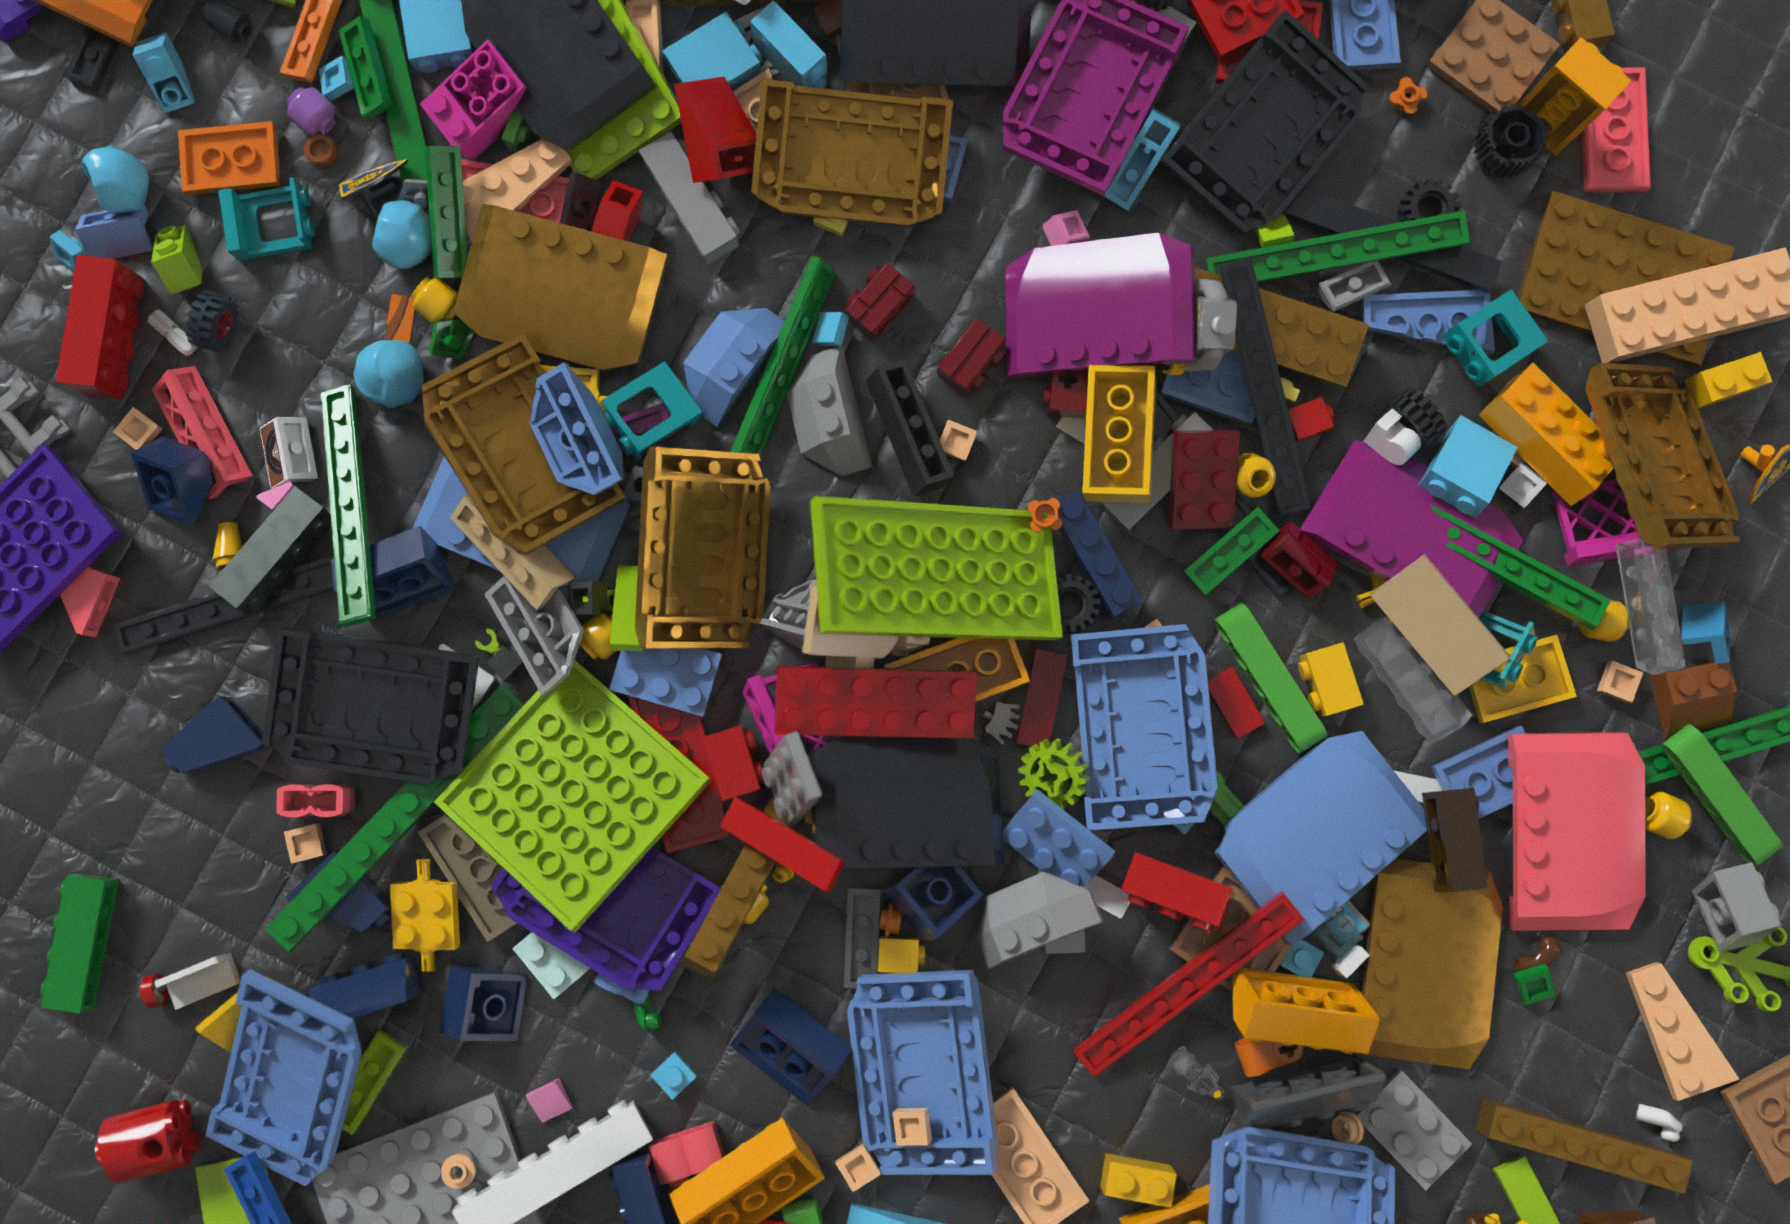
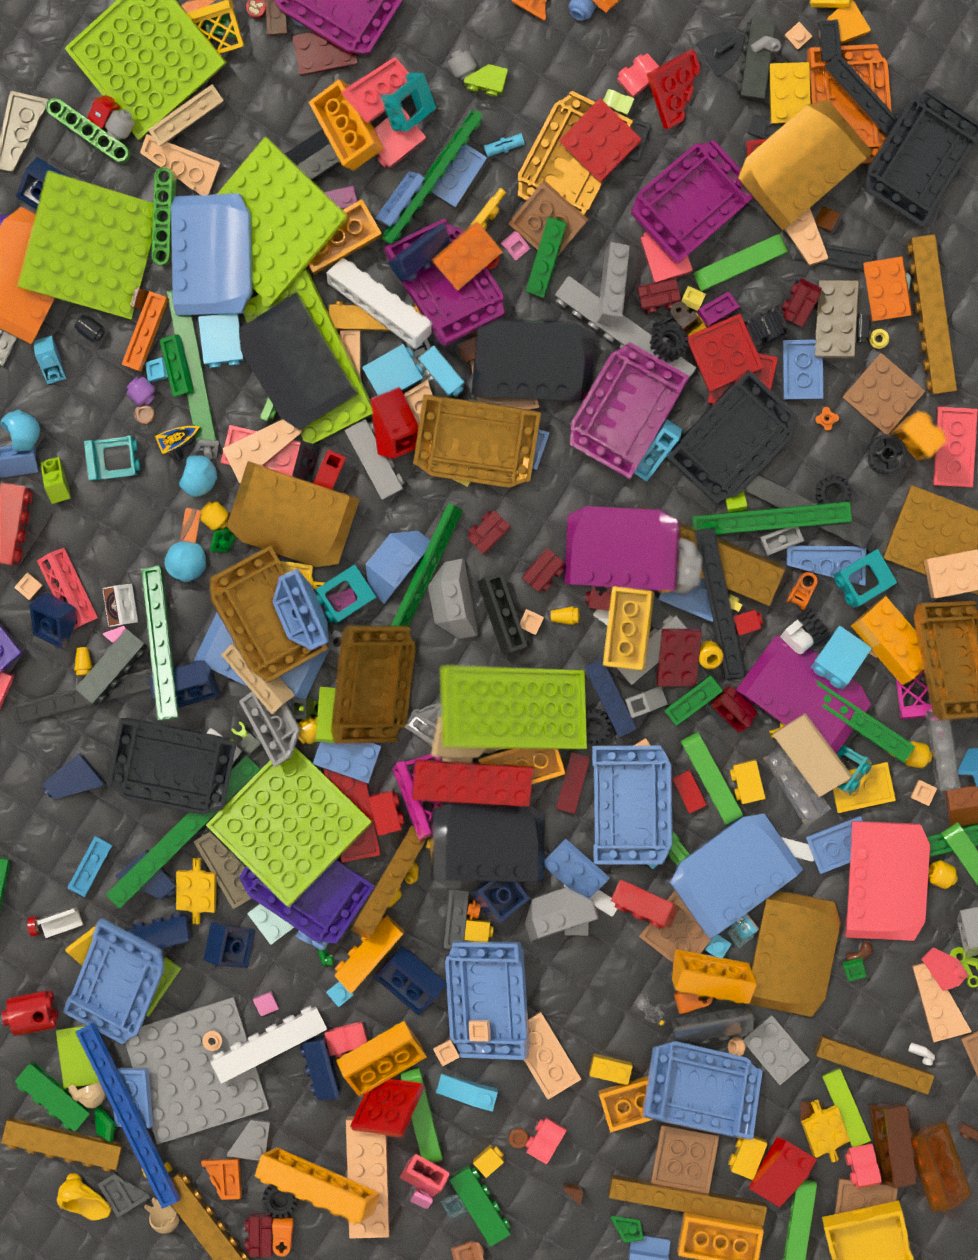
camera: 10 degrees right, 5 degrees up
(171, 331) = (52, 527): white piece -> none
(212, 321) = (78, 522): black wheel -> none
(229, 158) = (88, 417): orange plate -> none
(247, 884) = (90, 866): none -> dark azure plate
(305, 843) = (125, 844): light nougat plate -> none
(312, 800) = (140, 820): coral brick -> none
(446, 210) = (225, 464): green plate -> none
(475, 101) = (245, 394): dark pink slope -> none
(717, 1004) = (368, 954): none -> light orange slope
(782, 844) = (412, 863): red tile -> none
(791, 779) = (420, 827): light grey plate -> none
(830, 329) = (457, 547): medium azure tile -> none
(1000, 719) = (546, 794): light grey piece -> none
(1014, 427) = (566, 615): none -> yellow cone
(1050, 507) = (584, 678): orange plate -> none
(1057, 761) = (577, 828): lime gear -> none
(1065, 229) = (607, 492): bright pink slope -> none
(1153, 557) = (645, 701): none -> light grey slope
(1188, 984) = (647, 957): red tile -> none
(1350, 961) = (745, 949): white tile -> none
(1390, 369) = (802, 591): none -> orange piece
(1455, 840) = (812, 882): dark brown brick -> none
(1523, 484) = (875, 669): white plate -> none
(1688, 975) = (945, 969): none -> coral slope

